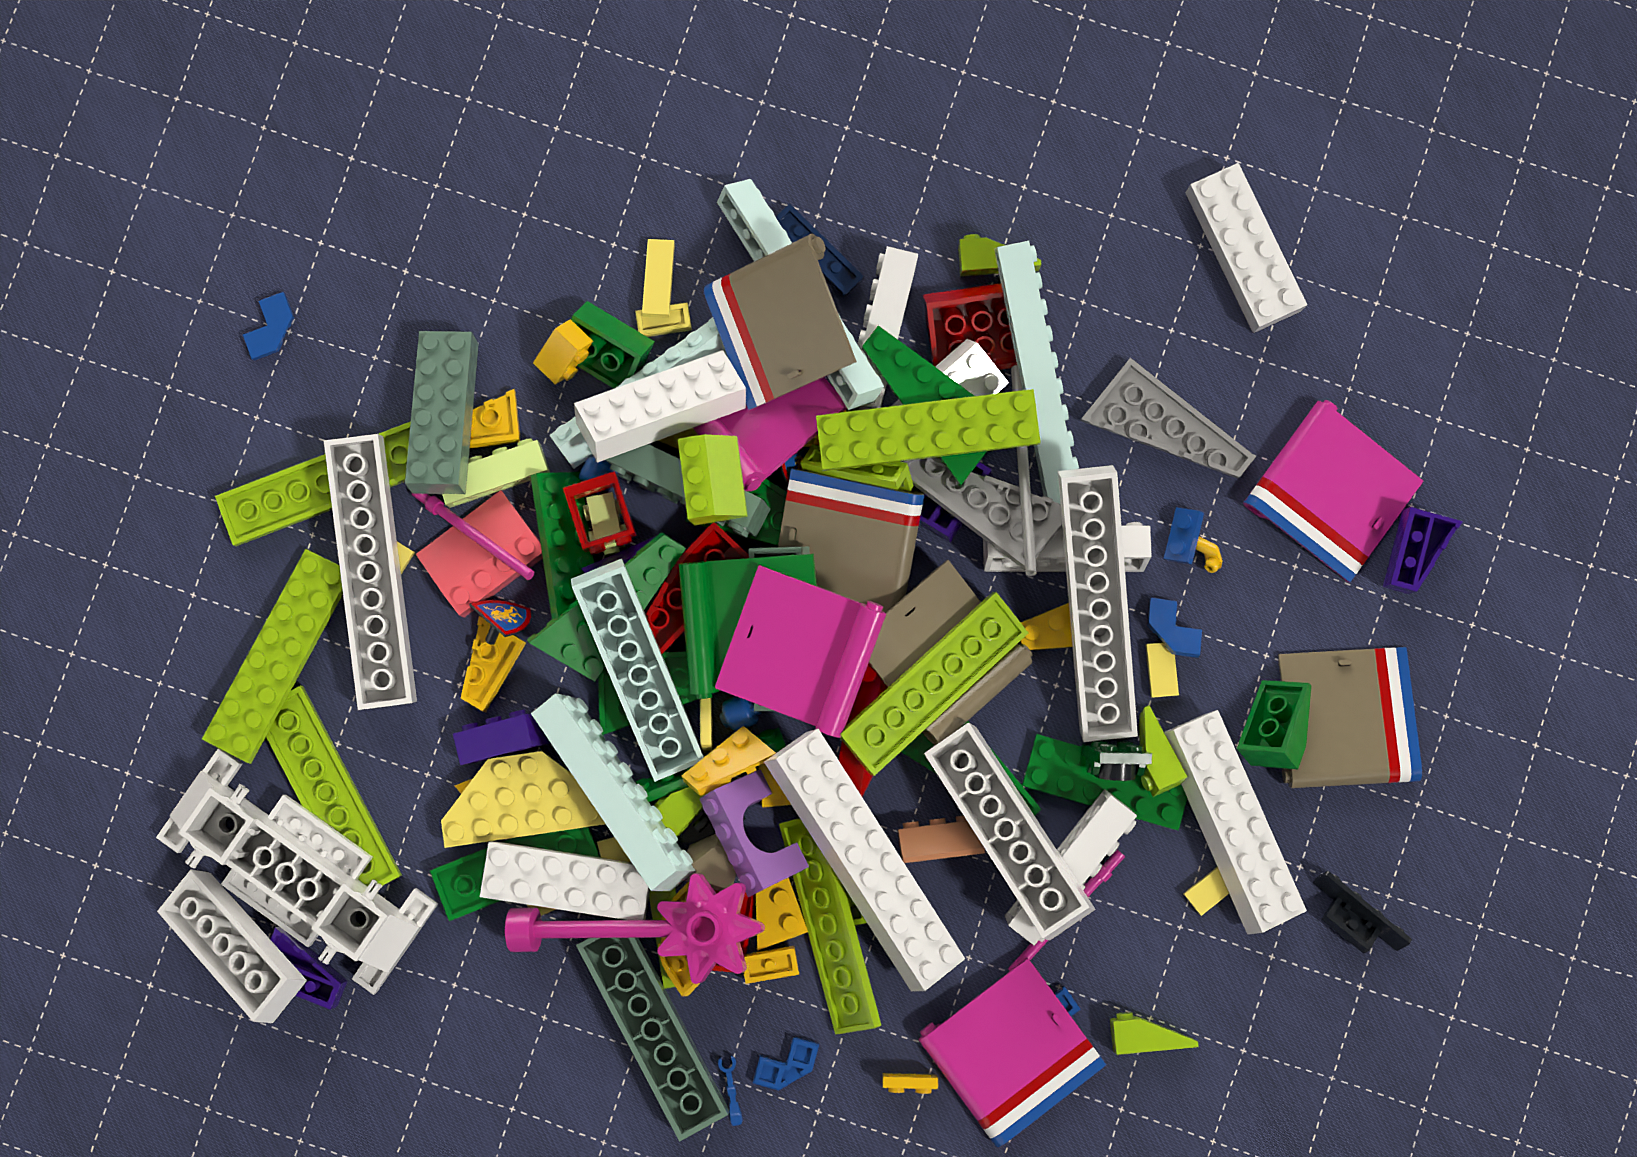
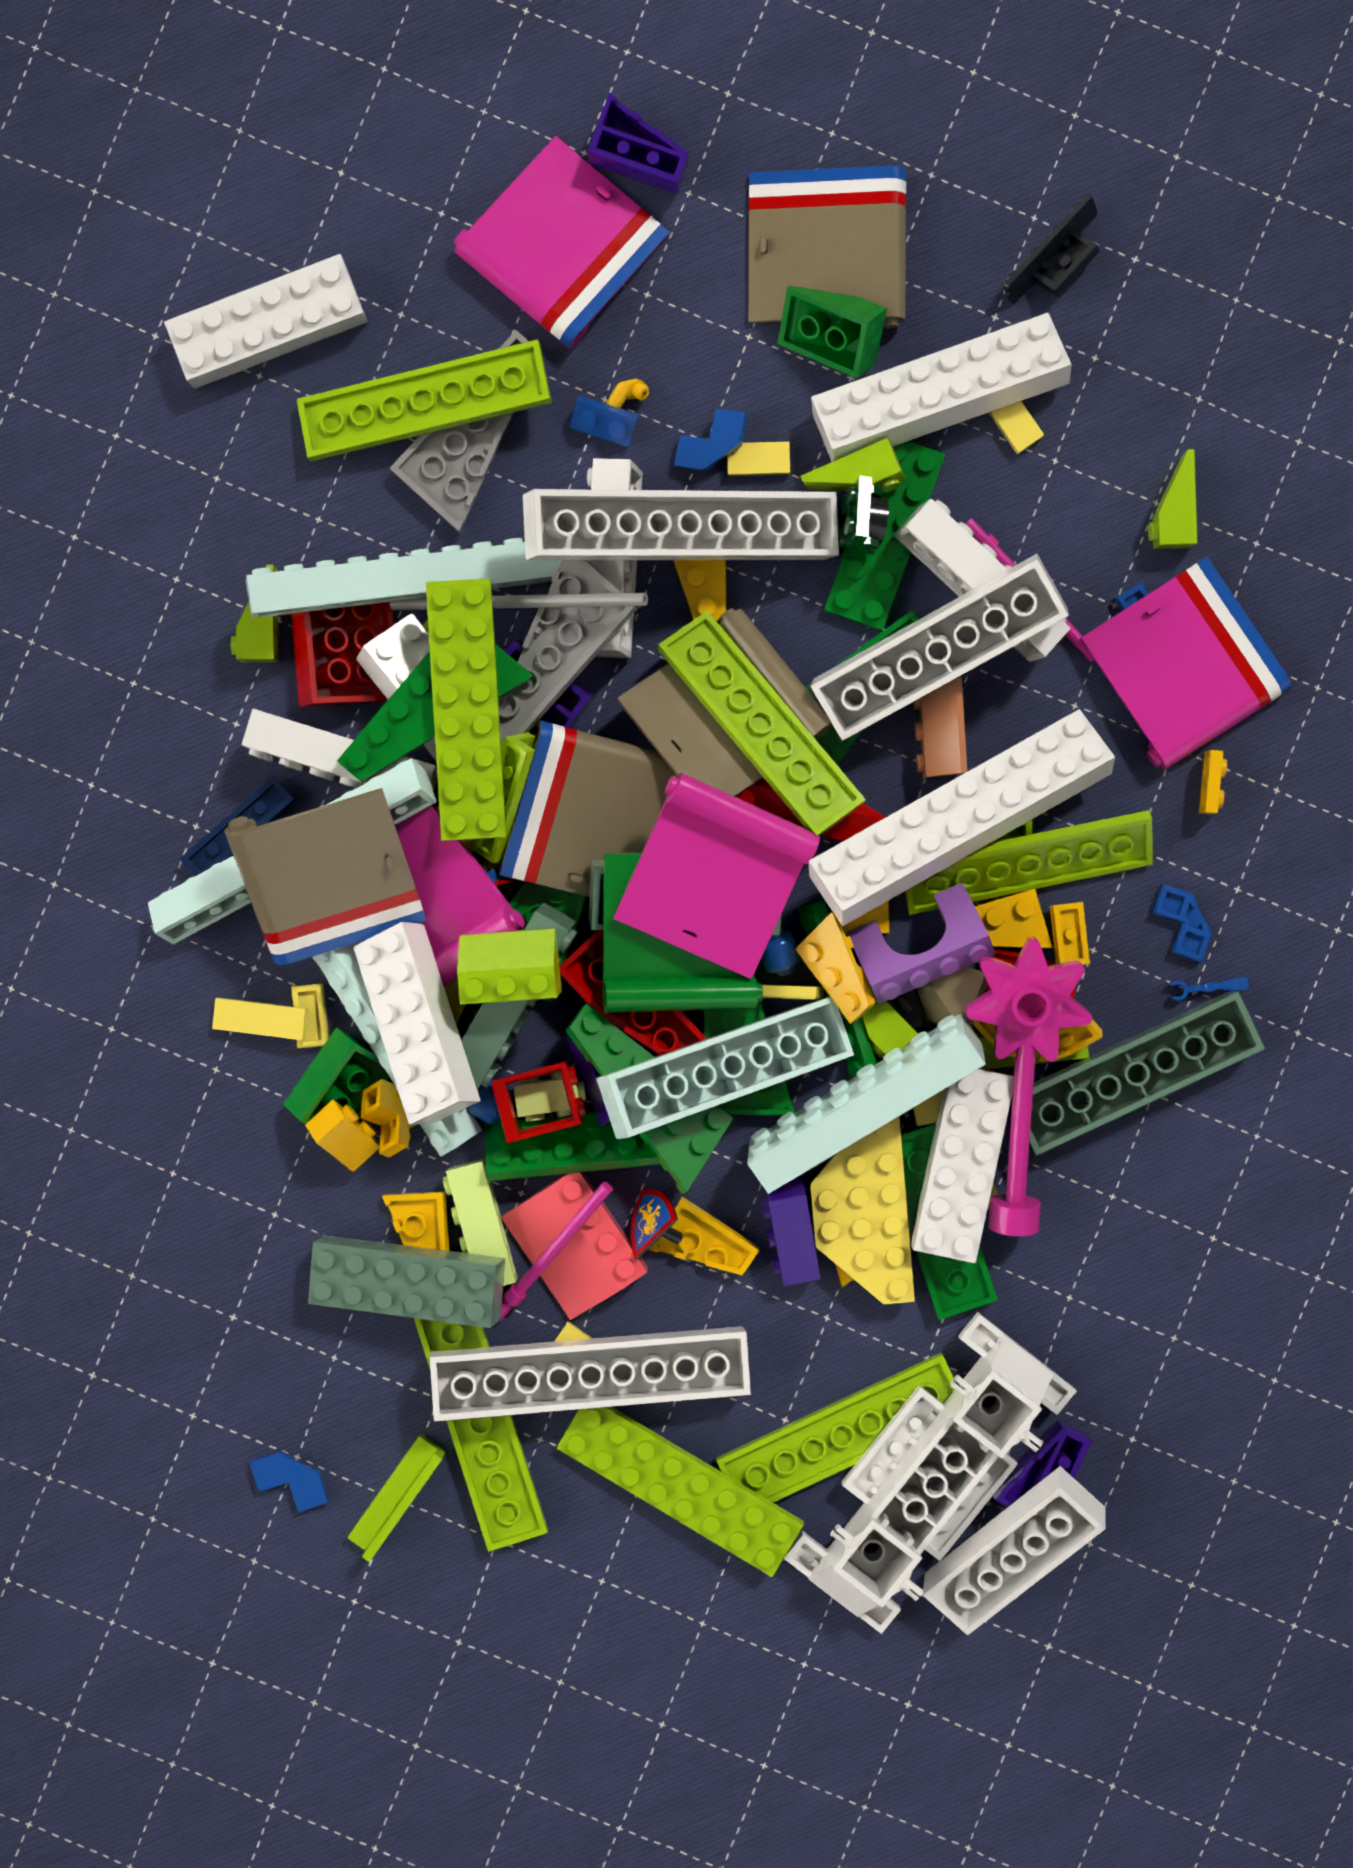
camera: 80 degrees left, 5 degrees up
(259, 415) = (396, 1496): none -> lime fence
(587, 383) = (384, 1107): none -> yellow brick
(1189, 383) = (424, 400): none -> lime plate

